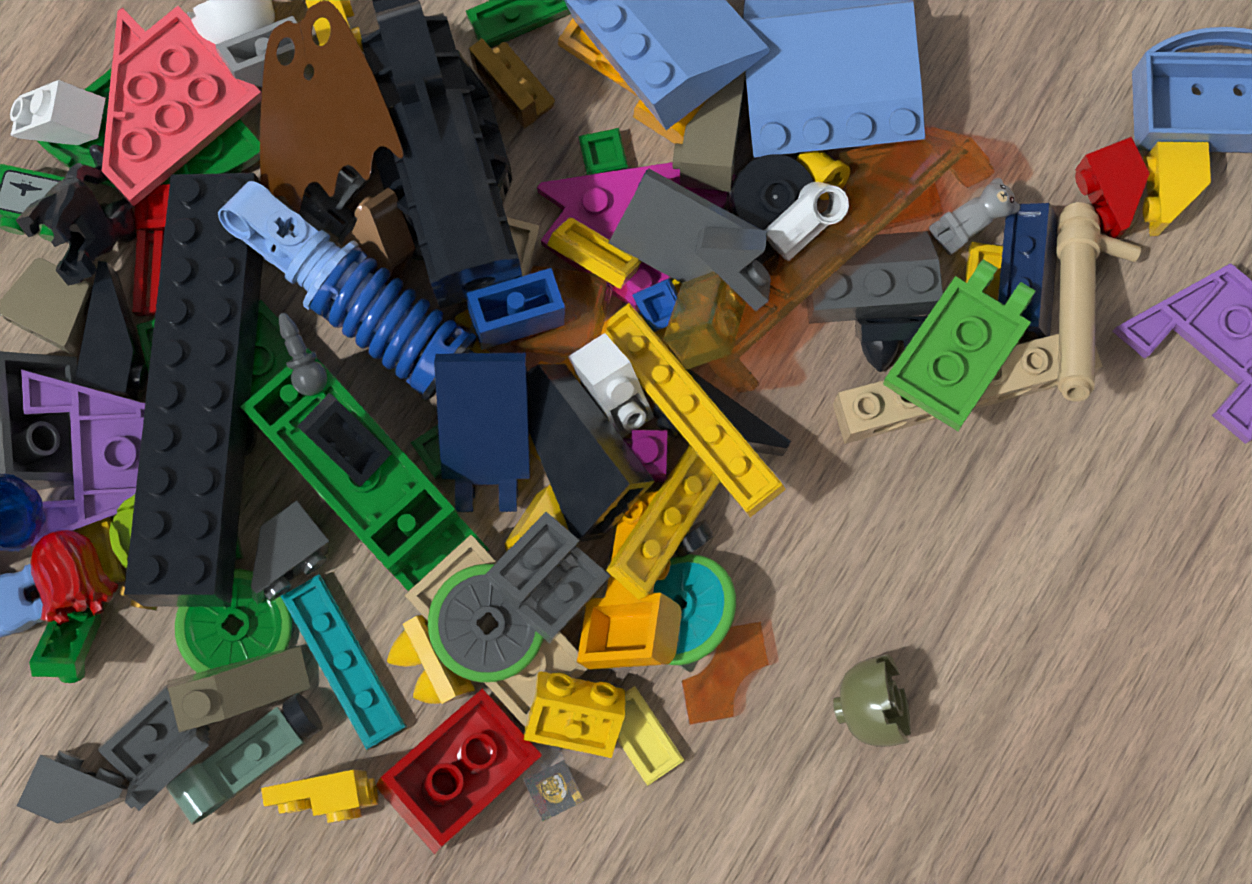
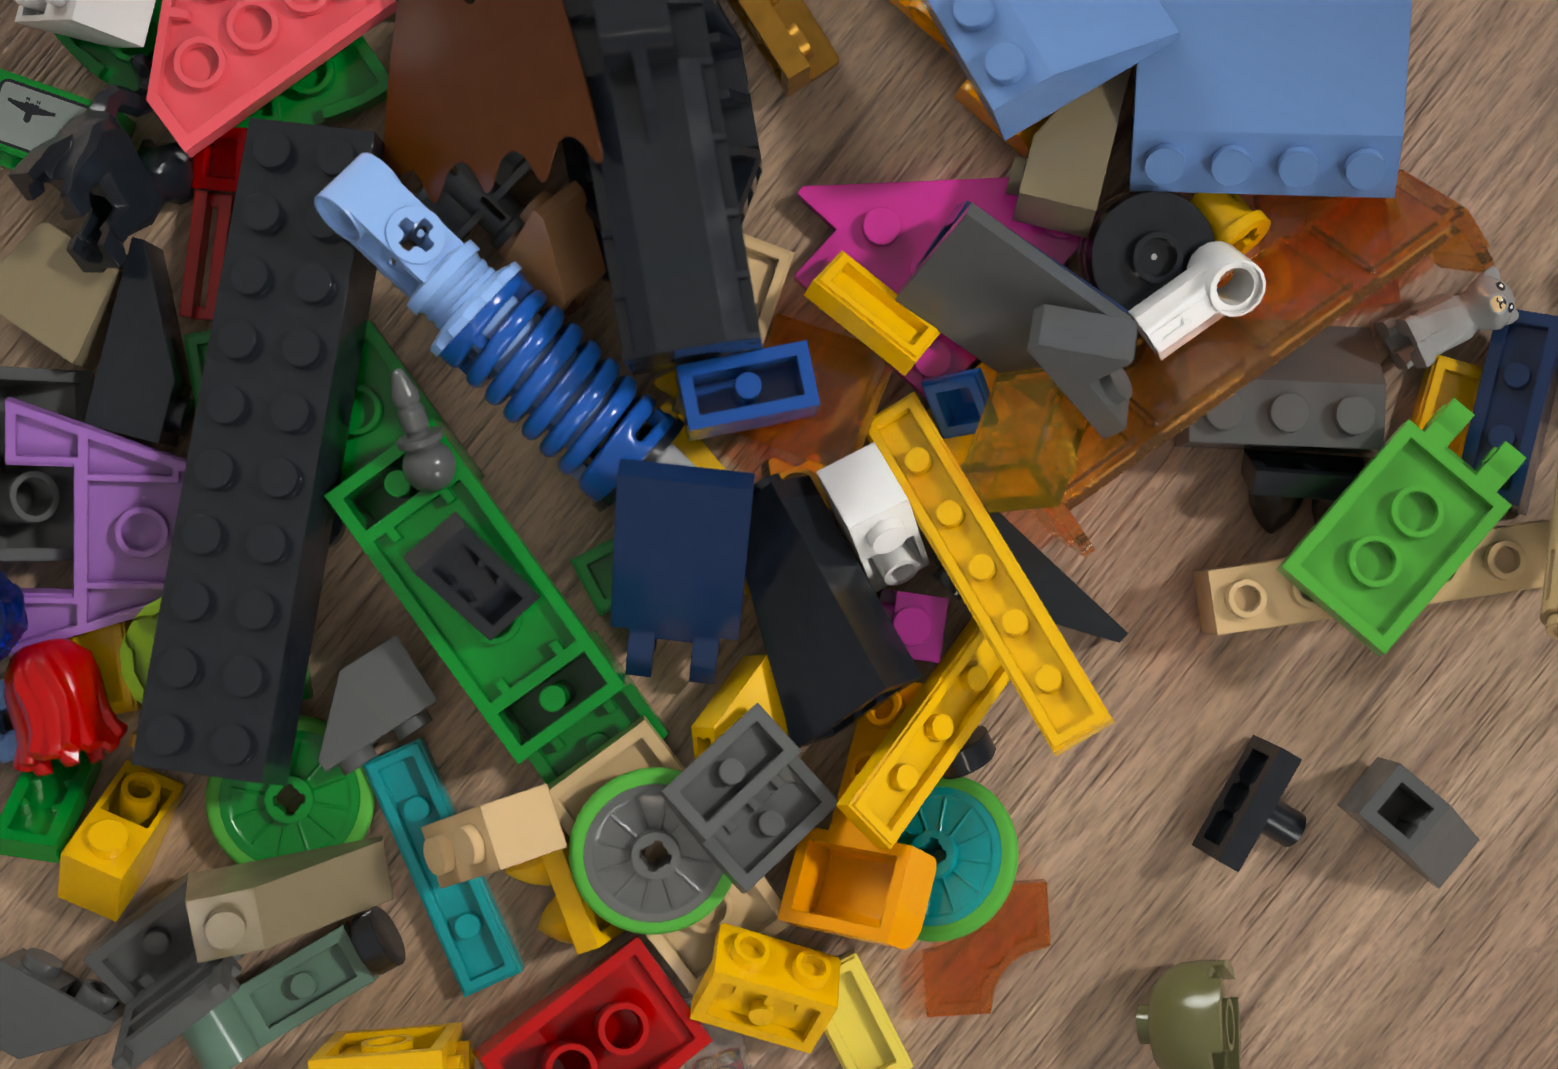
camera: 10 degrees right, 10 degrees up
(116, 668) = (118, 841): none -> yellow slope
(375, 626) = (493, 836): none -> tan brick
(603, 152) = (902, 149): green tile -> none
(893, 551) = (1252, 806): none -> black tile
(1002, 548) = (1410, 820): none -> dark grey slope

